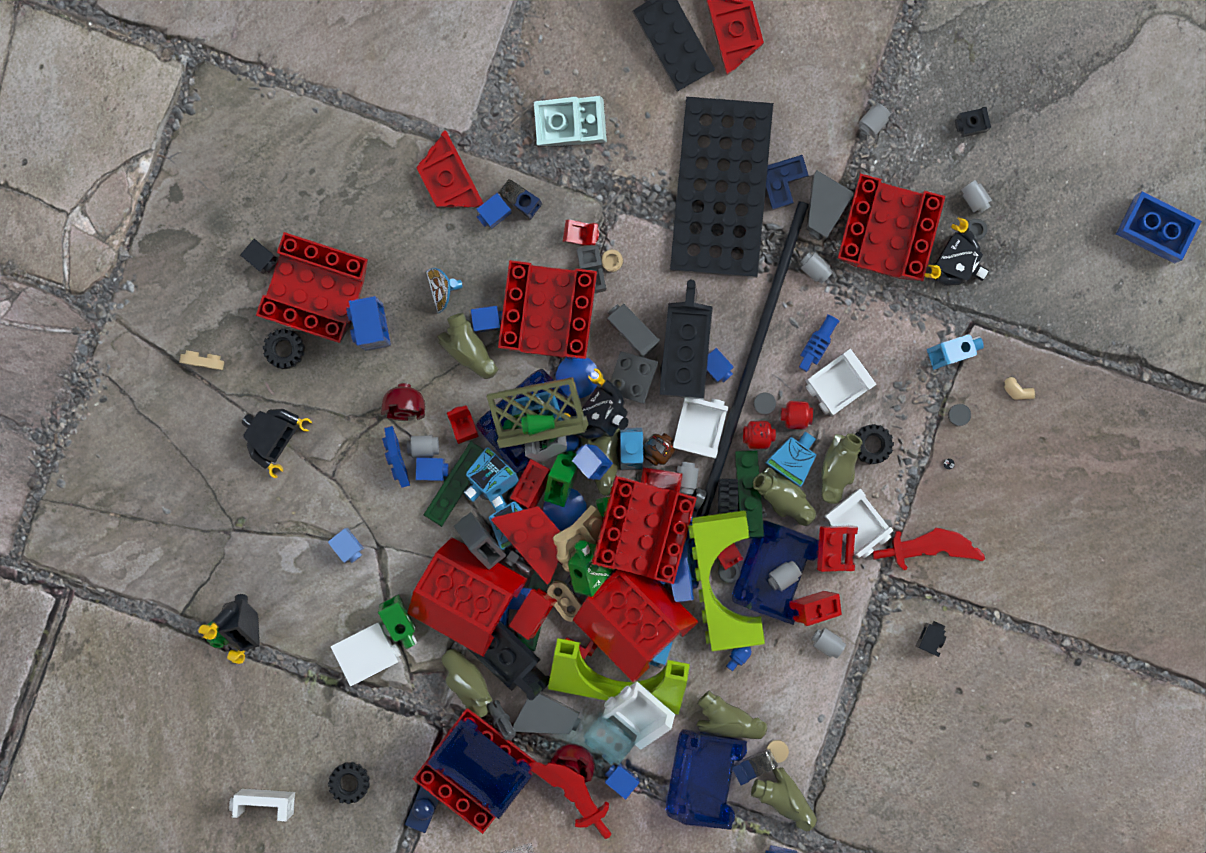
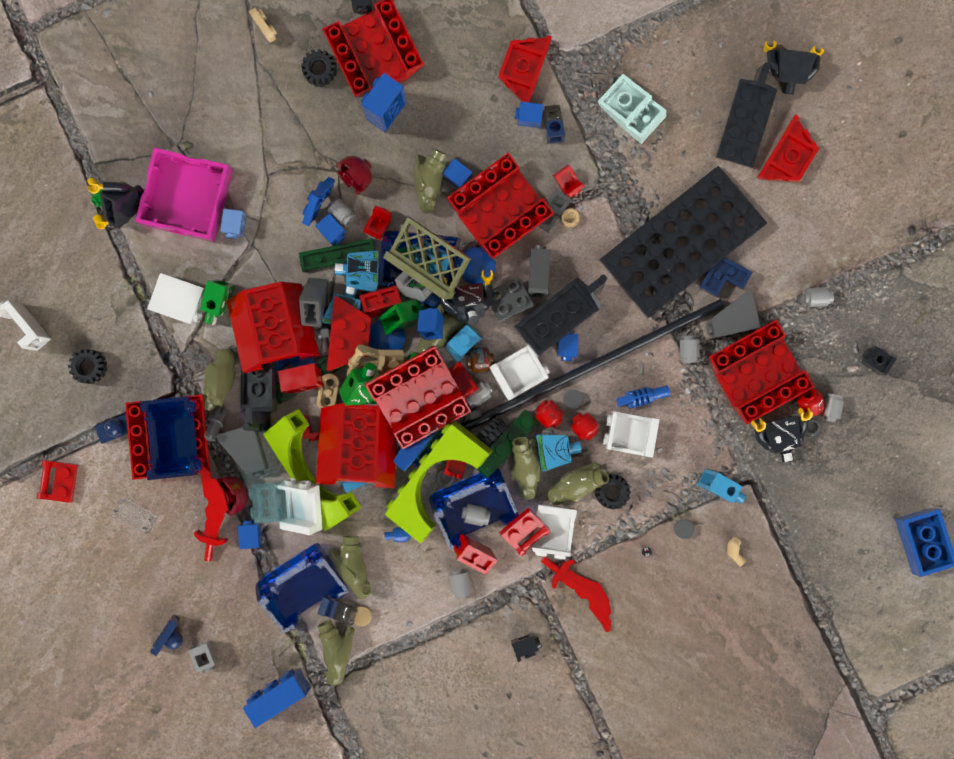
camera: 50 degrees right, 0 degrees up
(269, 434) = (256, 109): black torso -> none
(283, 564) = (184, 195): none -> dark pink tile
(441, 287) = (451, 127): shield -> none
(535, 424) = (419, 264): green cone -> none
(955, 207) = (811, 399): none -> red head

